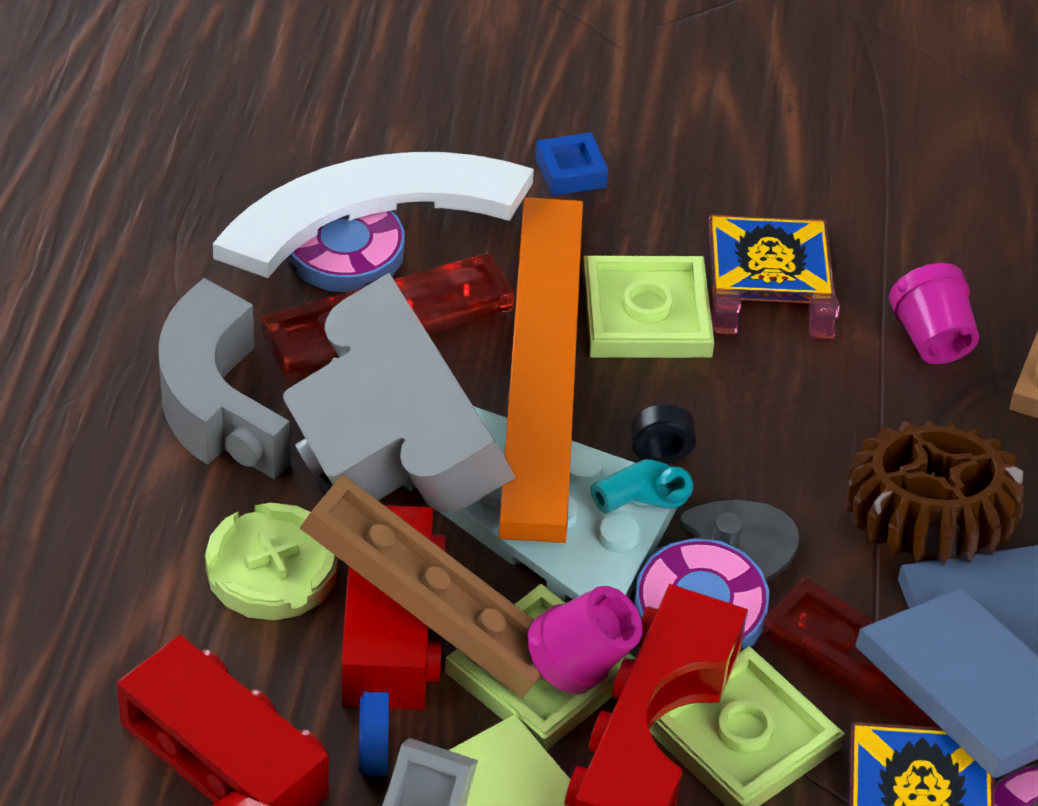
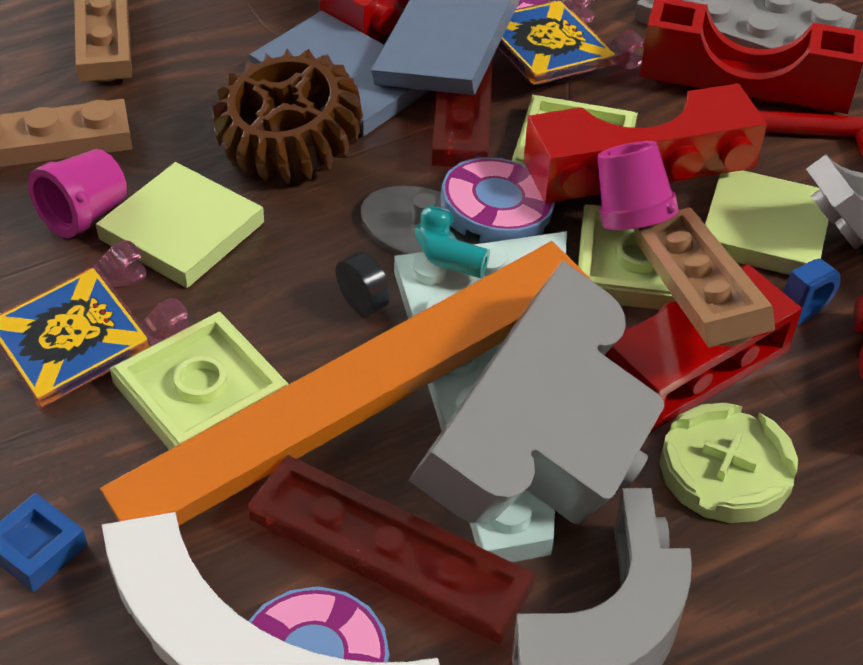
camera: 125 degrees left, 0 degrees up
(857, 379) = (182, 223): none -> yellowish green tile

